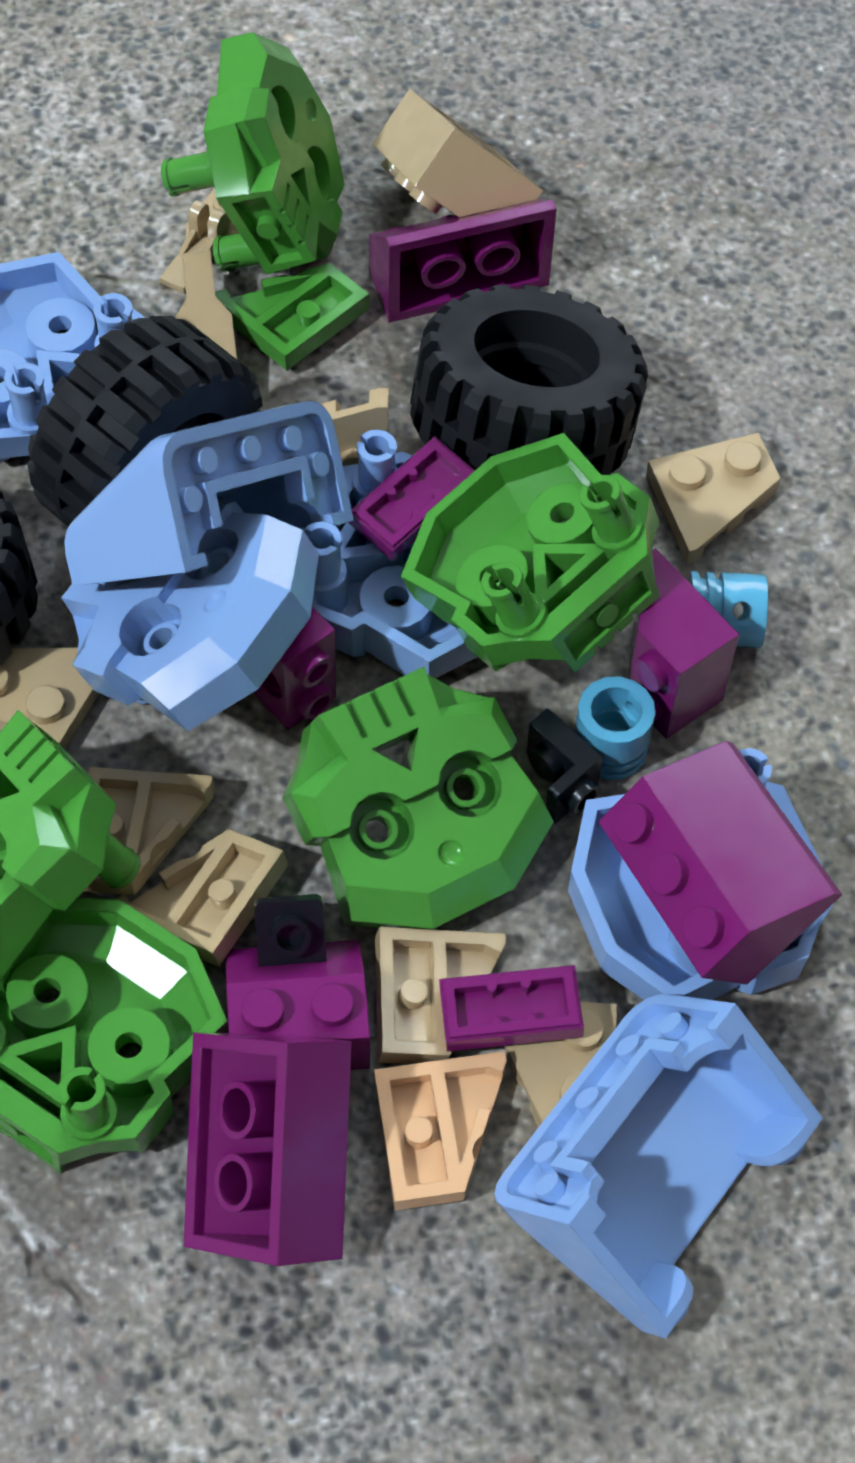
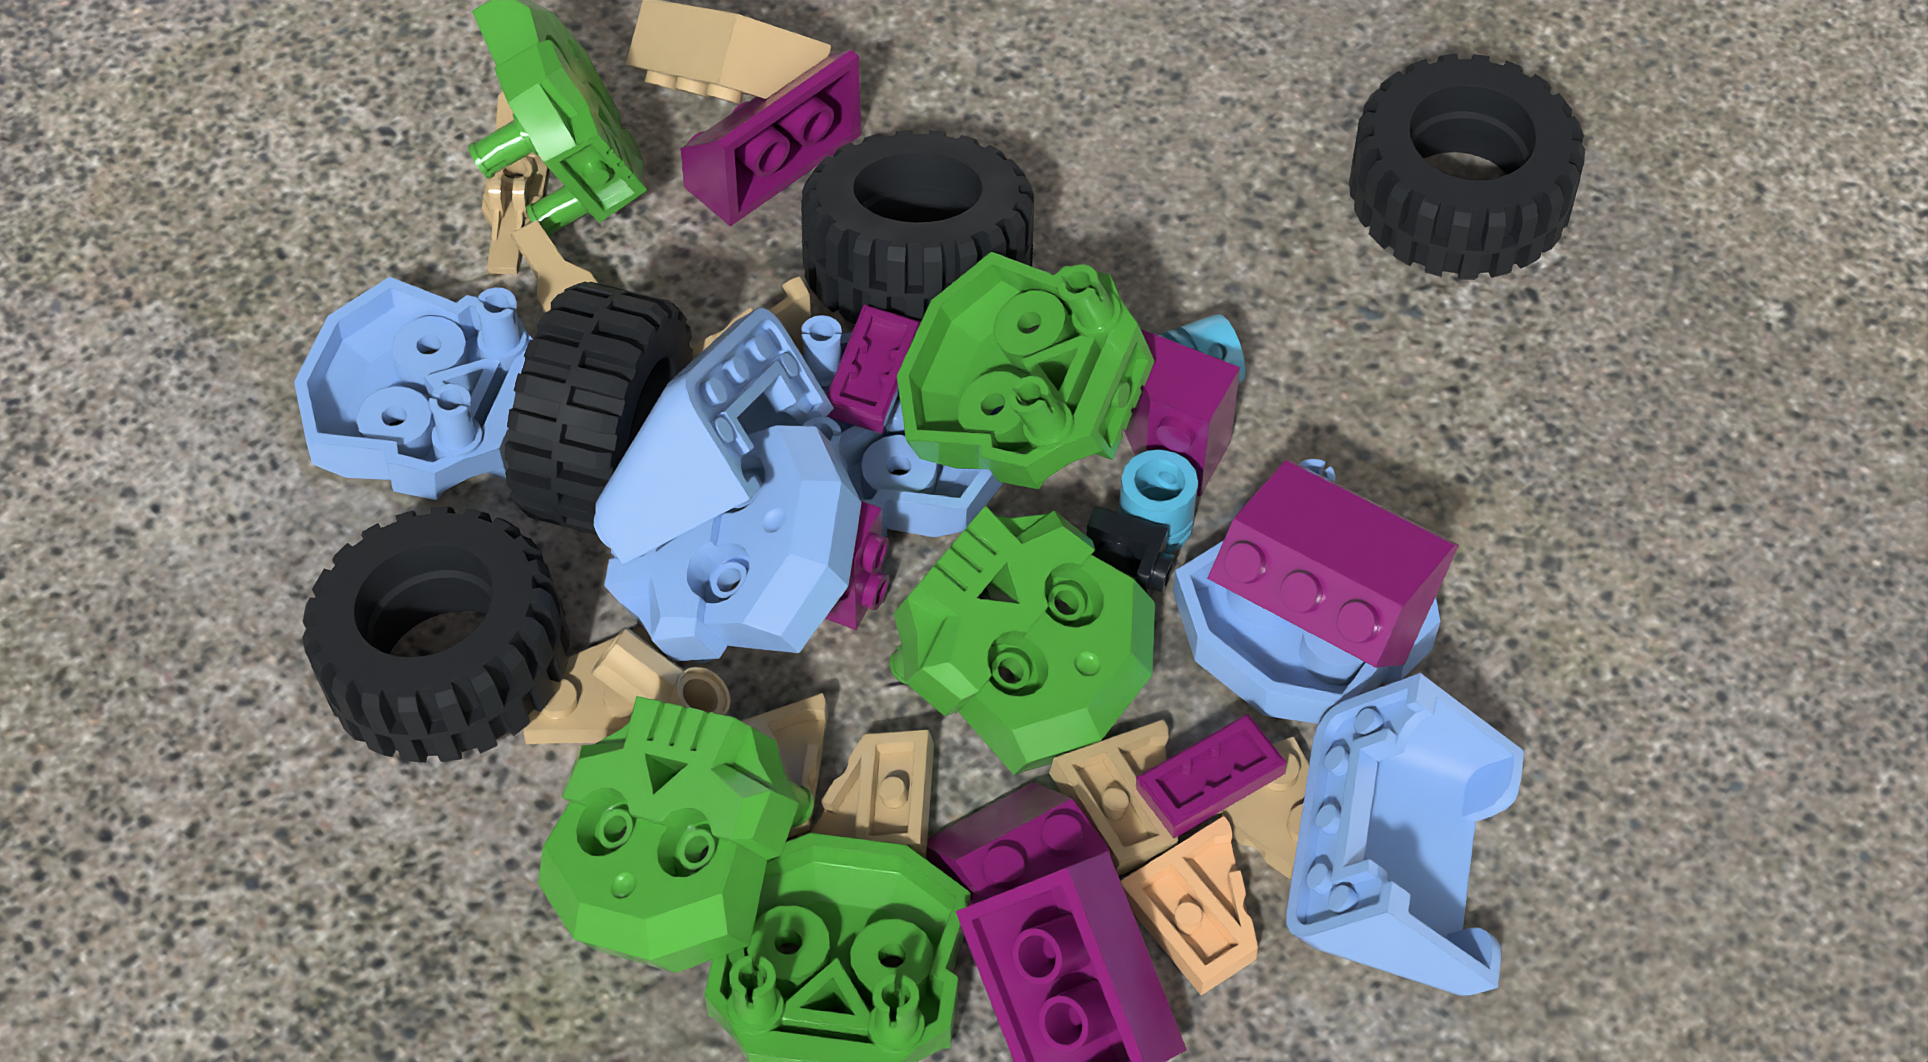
camera: 25 degrees left, 5 degrees down
(70, 704) = (639, 669): none -> tan piece
(290, 930) = (977, 793): black bracket -> none
(297, 312) = (645, 245): bright green wing -> none
(712, 489) = (1126, 244): tan wing -> none

